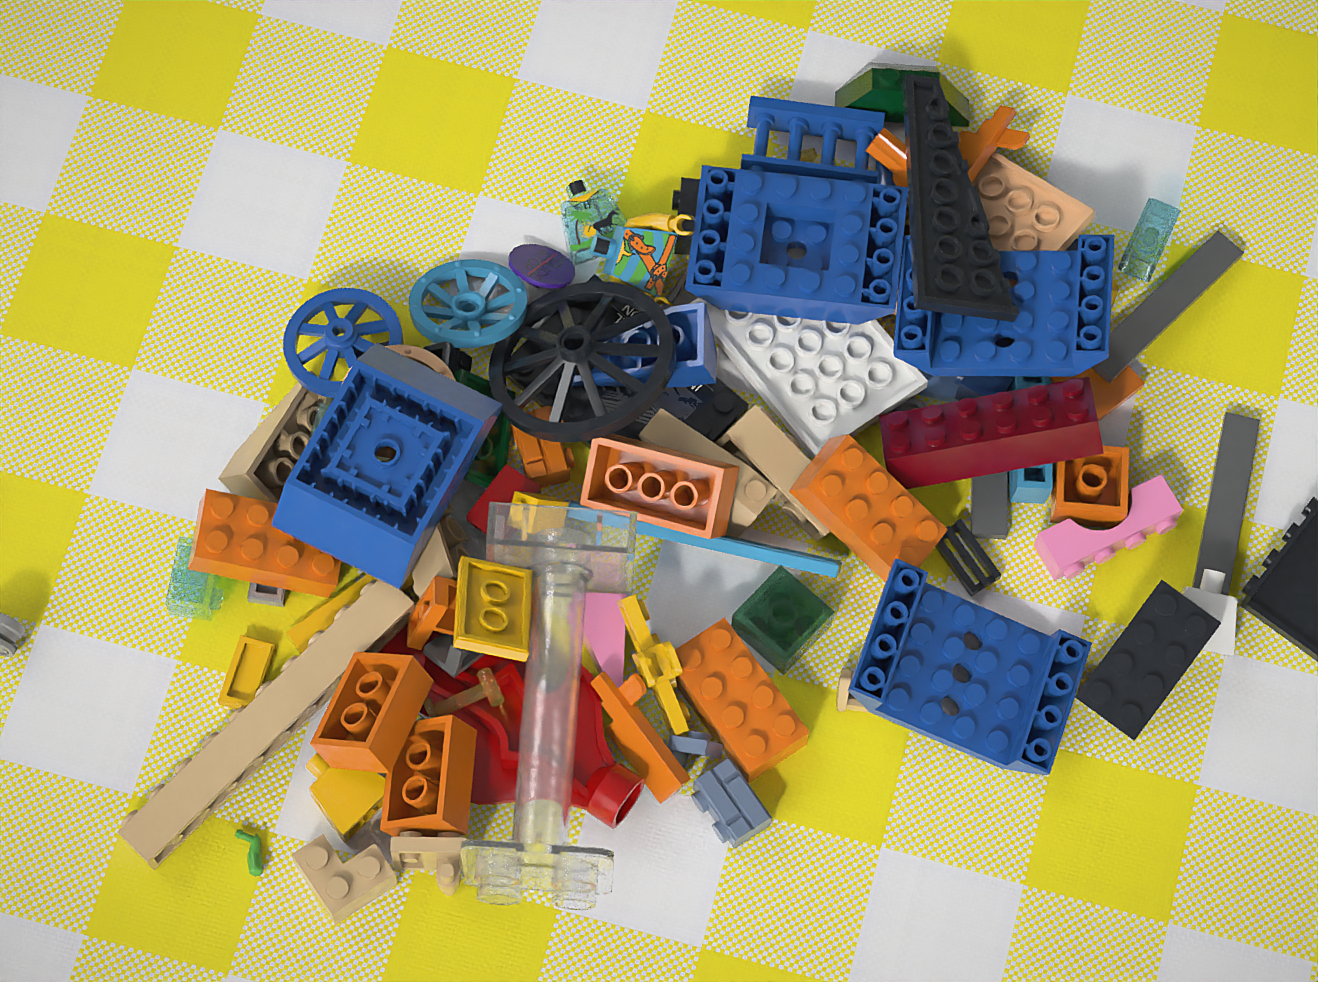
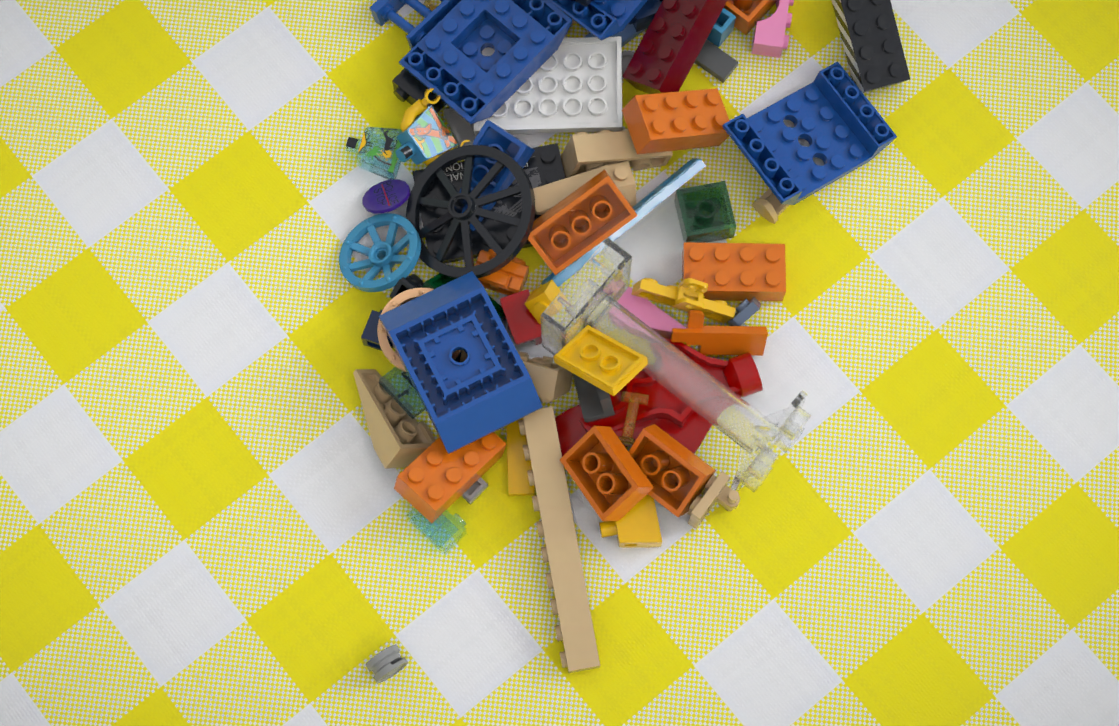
camera: 50 degrees left, 5 degrees up
(246, 672) = (516, 534): yellow tile -> none
(254, 855) = (631, 602): bright green piece -> none
(337, 346) = (353, 344): blue wheel -> none
(345, 886) = (689, 565): tan brick -> none
(433, 612) = (568, 398): orange panel -> none
(730, 803) = (792, 316): sand blue brick -> none
(994, 574) = (735, 90): black tile -> none

